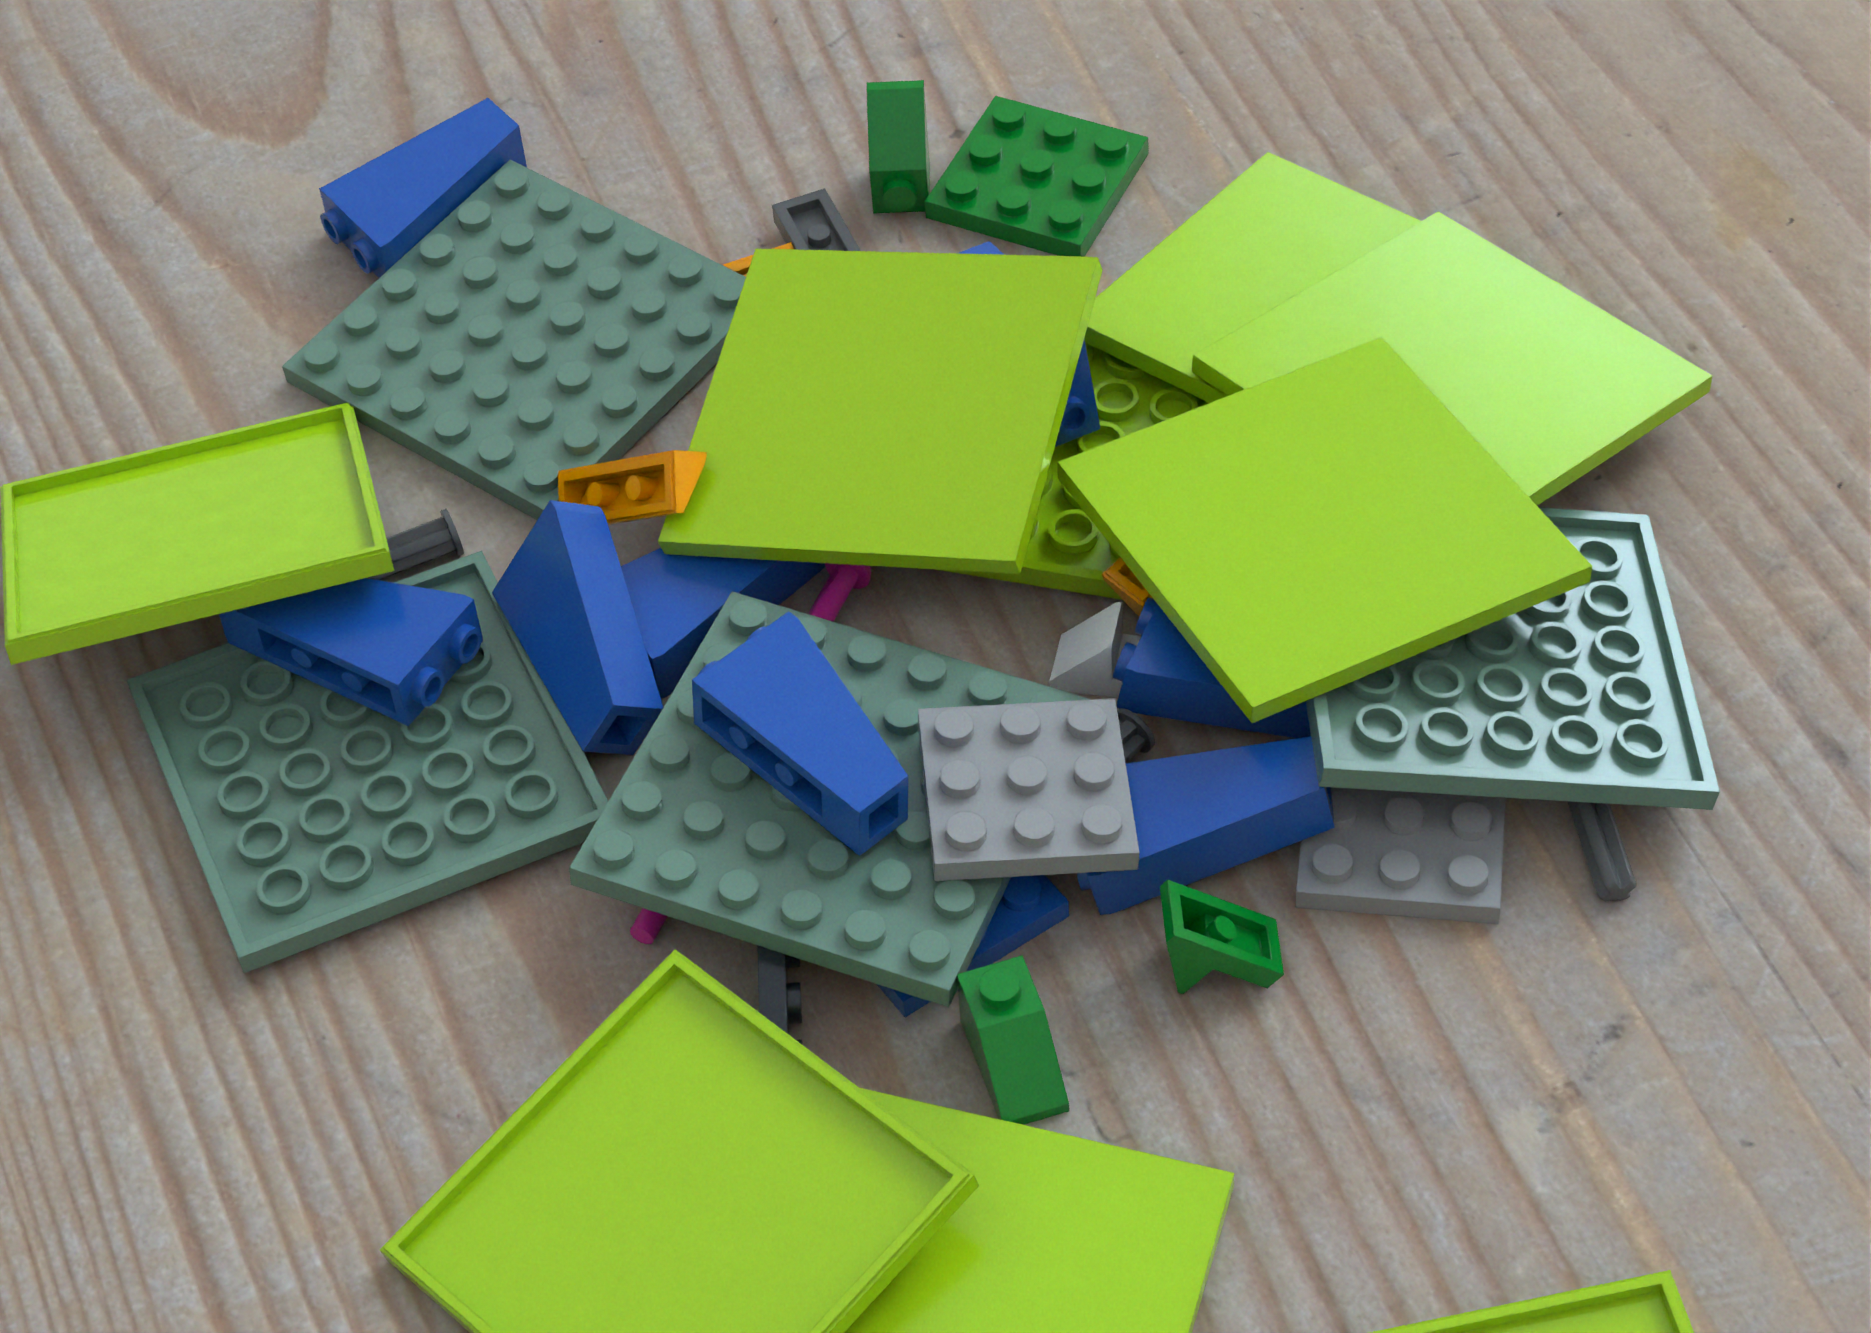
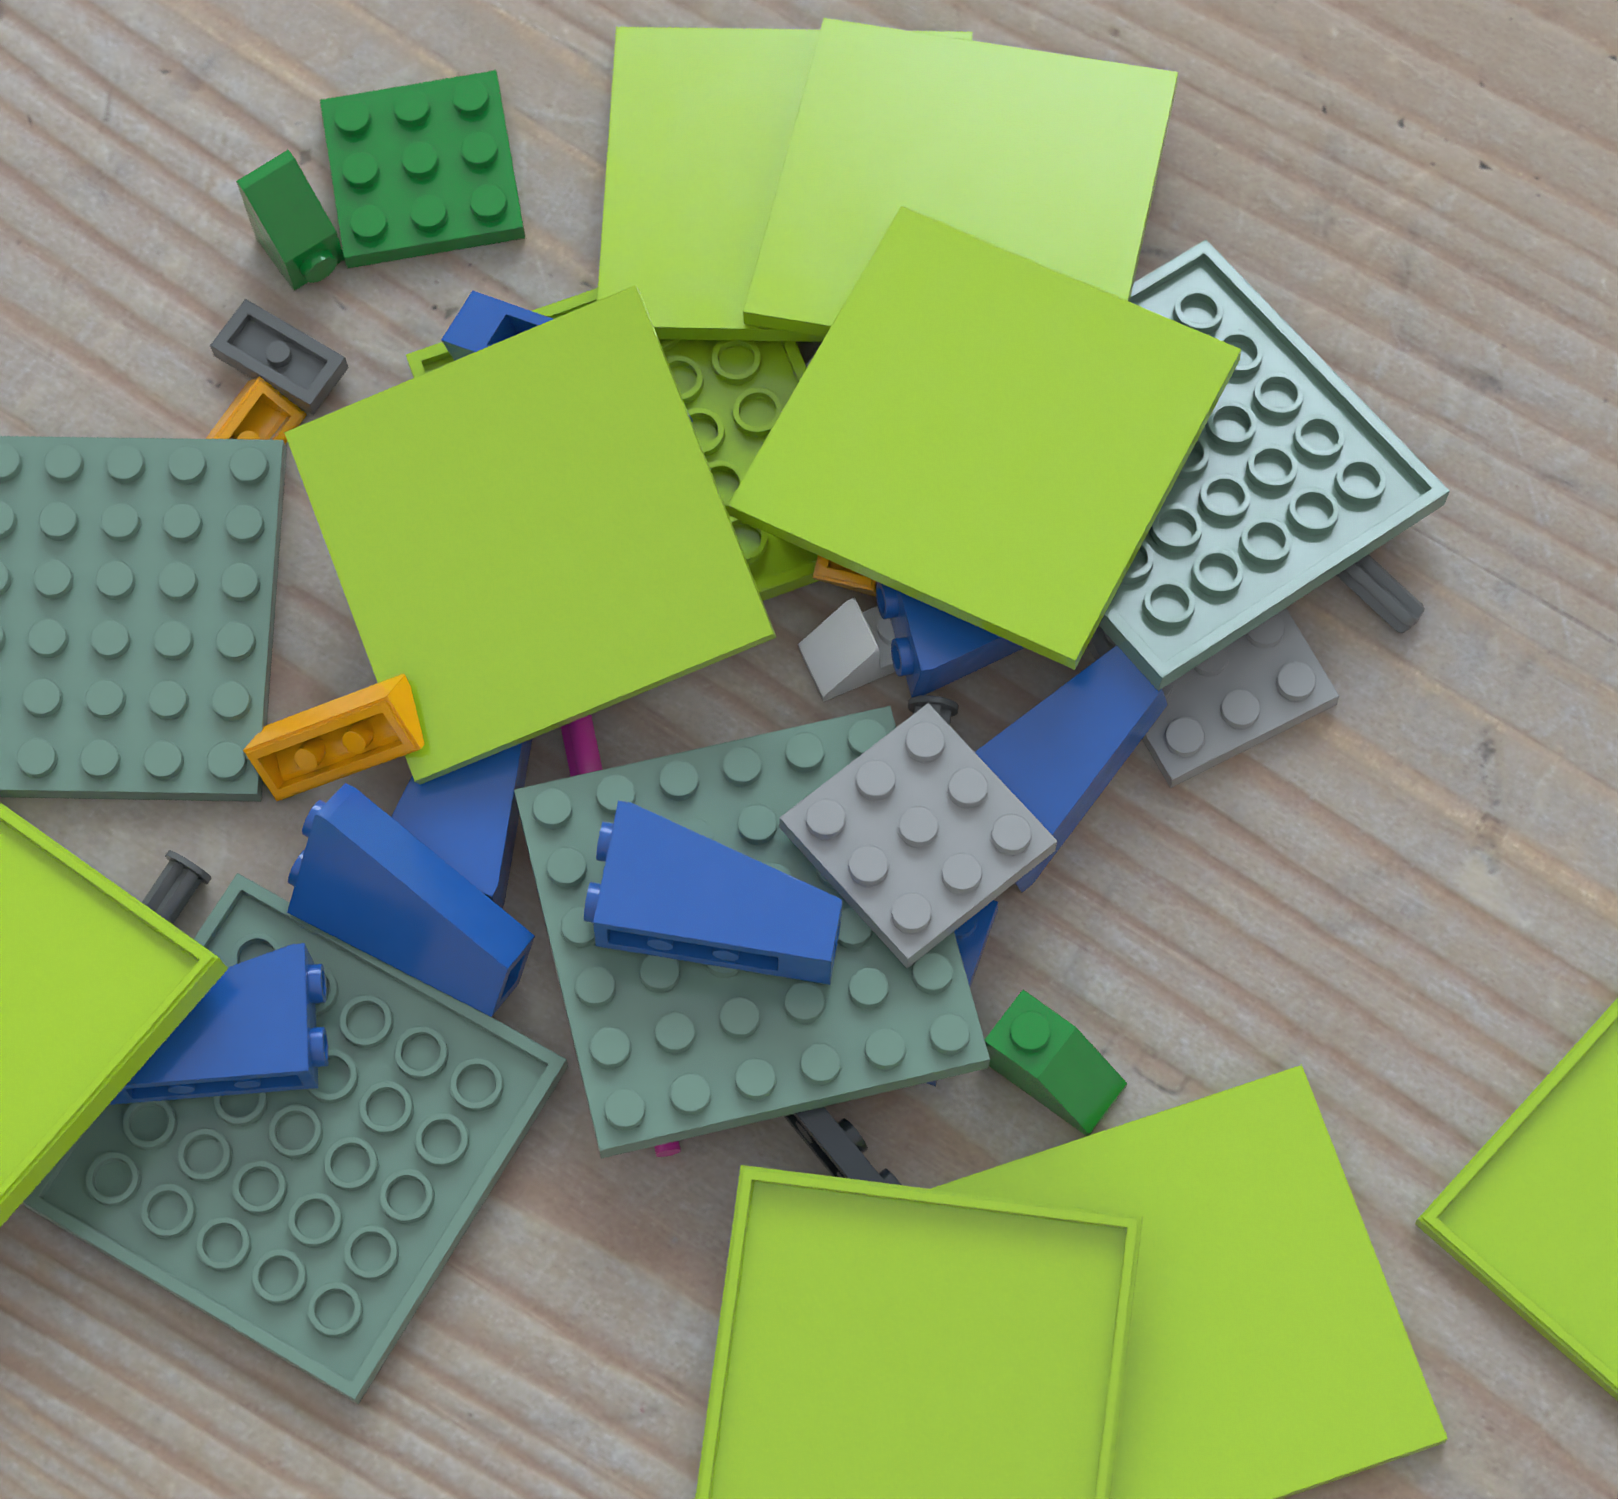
camera: 35 degrees left, 20 degrees up
(1219, 936) = (1149, 867): green slope -> none

